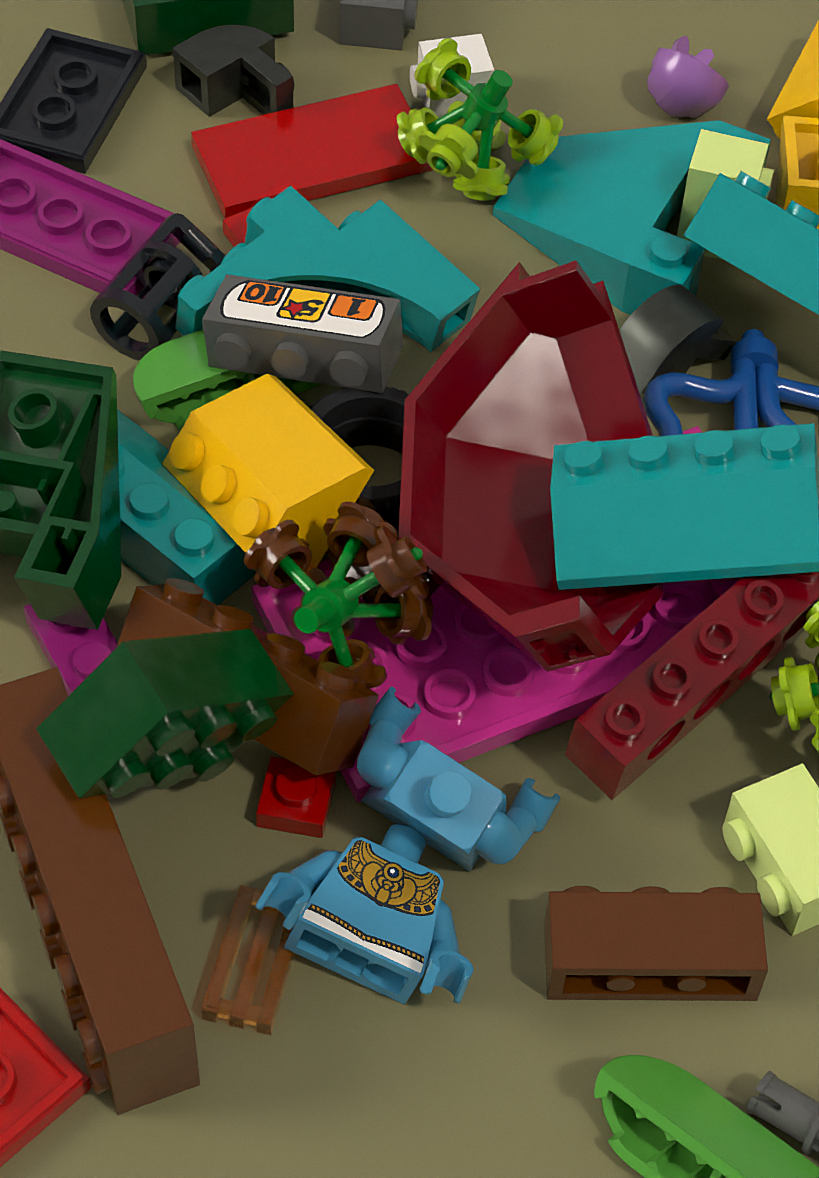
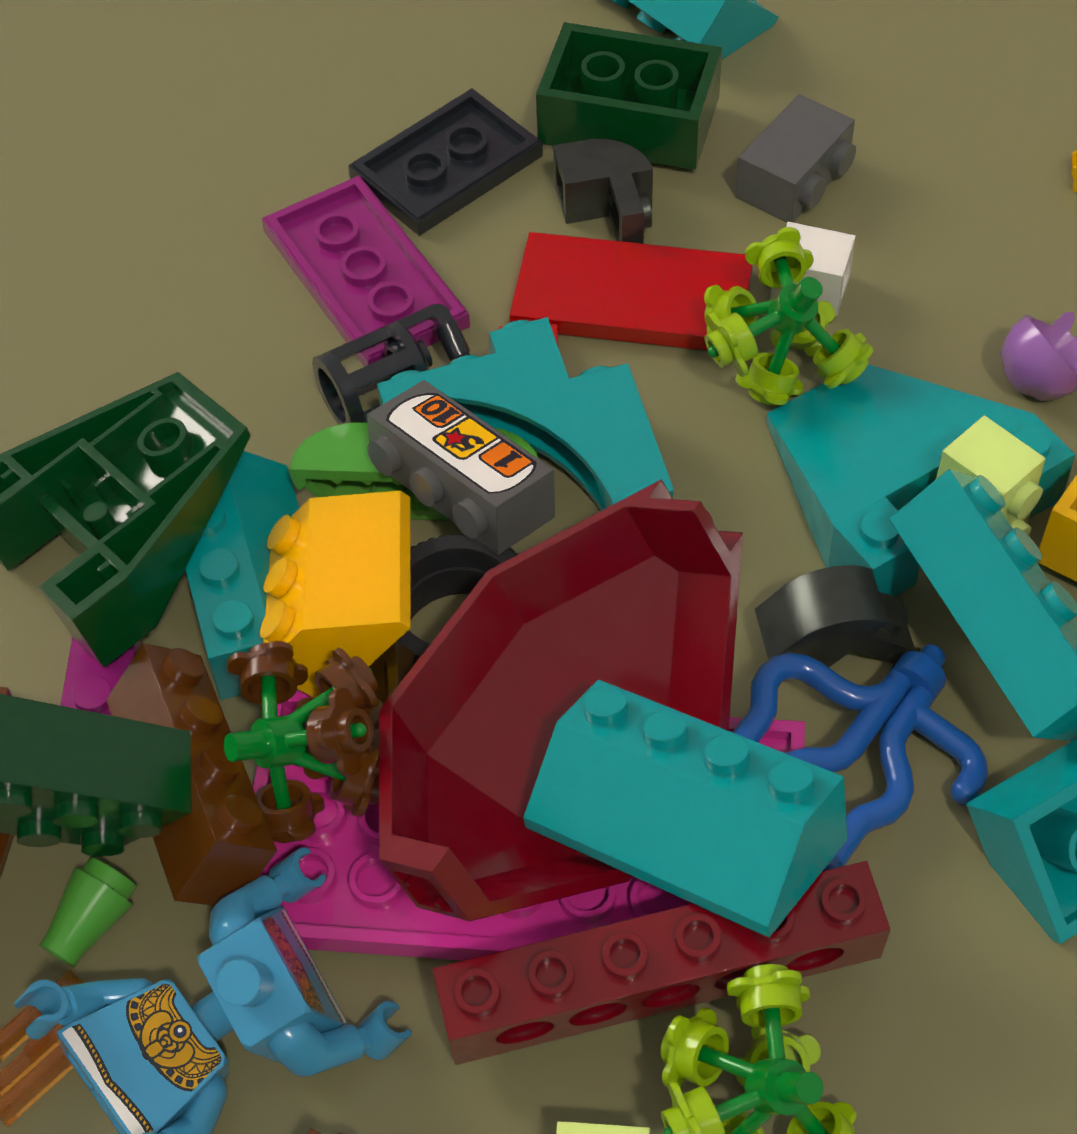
camera: 35 degrees right, 0 degrees up
(220, 829) = (87, 910): none -> bright green cone
(295, 799) = (173, 923): red plate -> none

